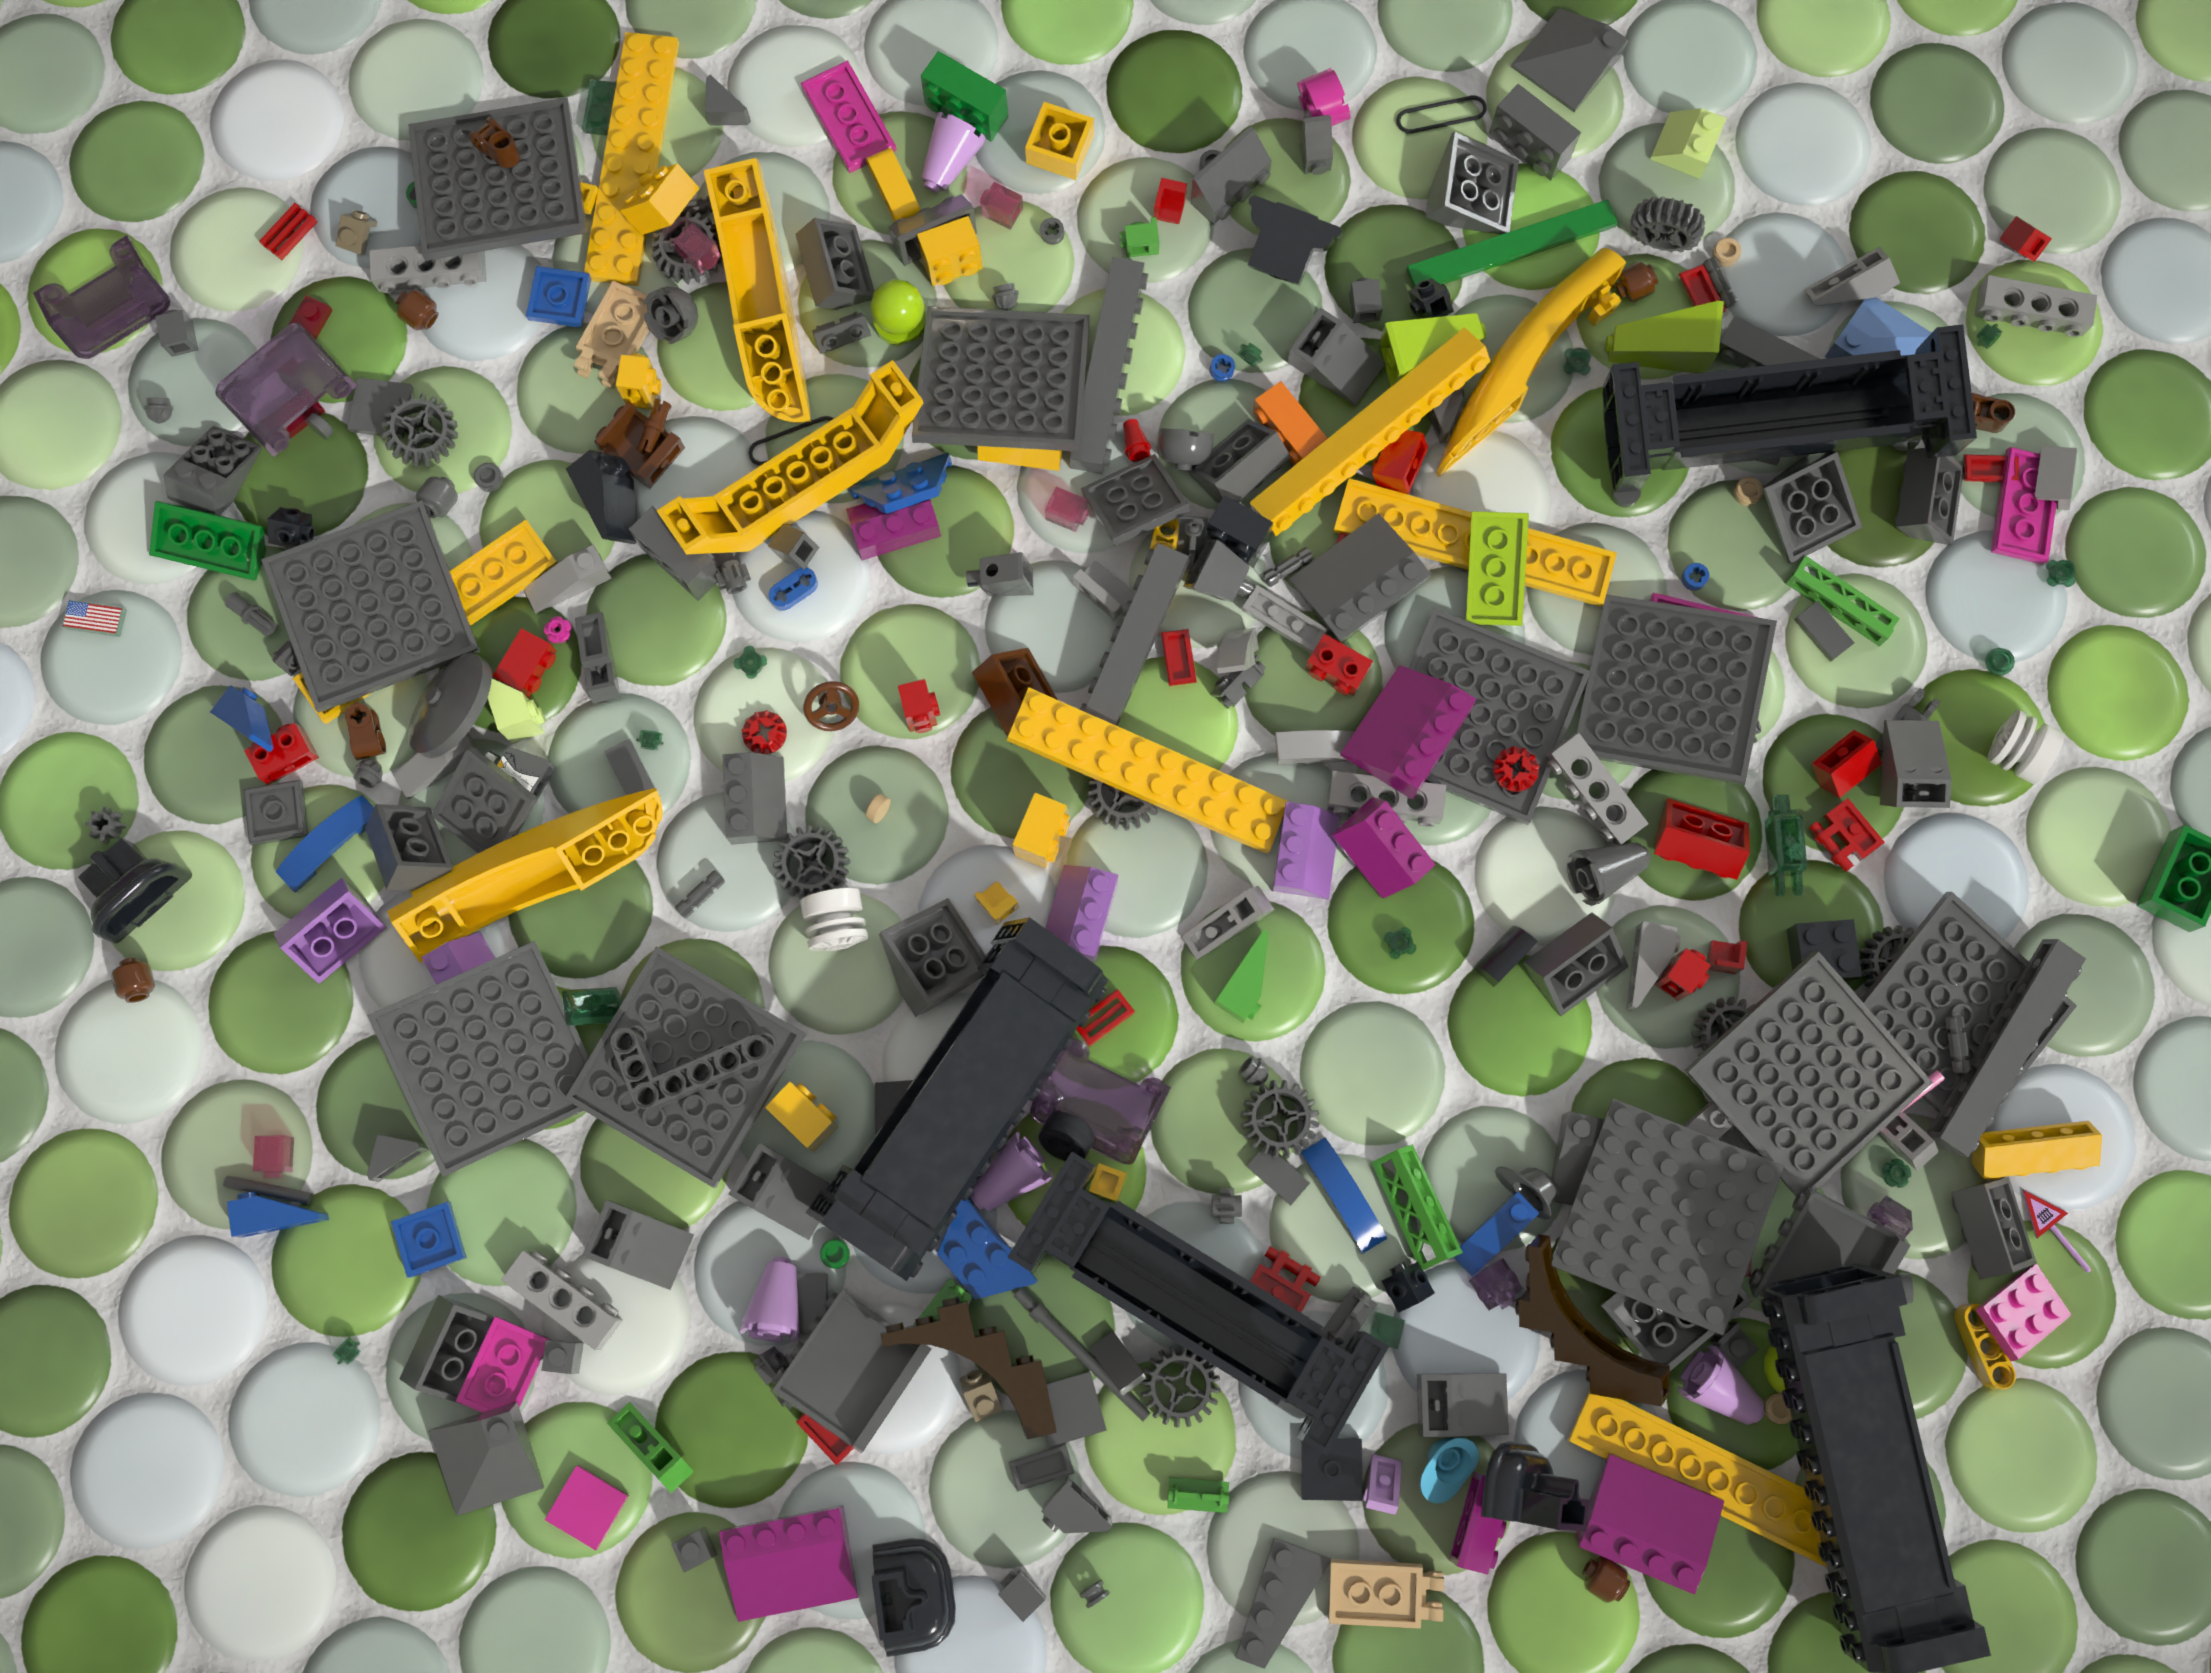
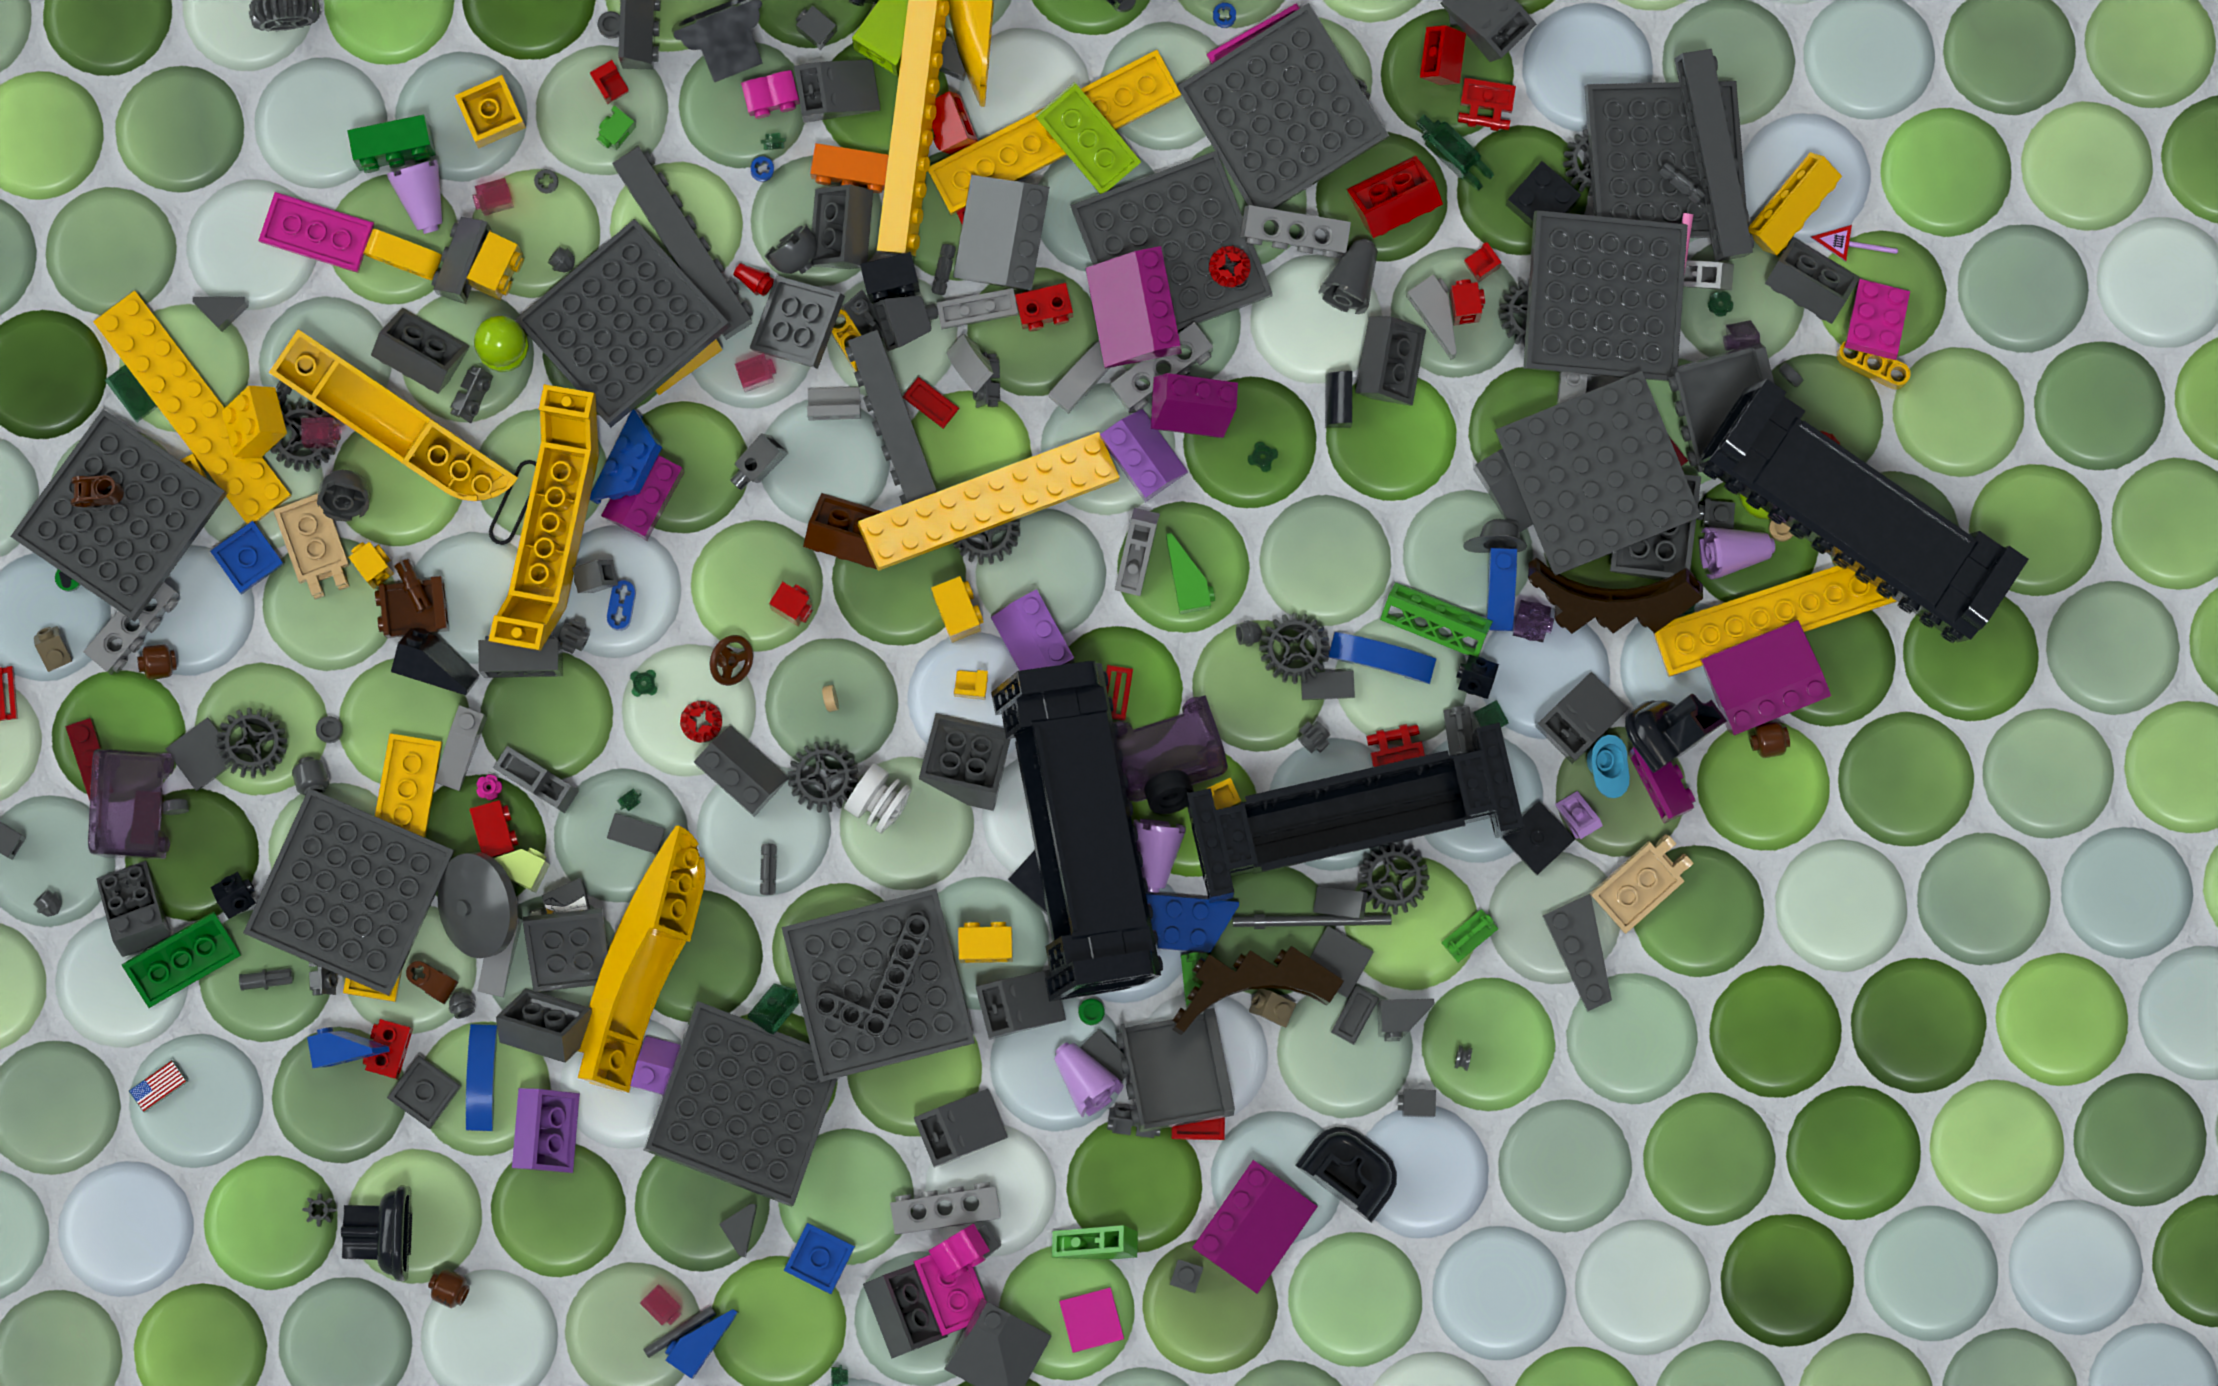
camera: 45 degrees left, 5 degrees up
(531, 1347) = (958, 1251): none -> dark pink brick
(1281, 316) = (770, 94): none -> dark pink brick

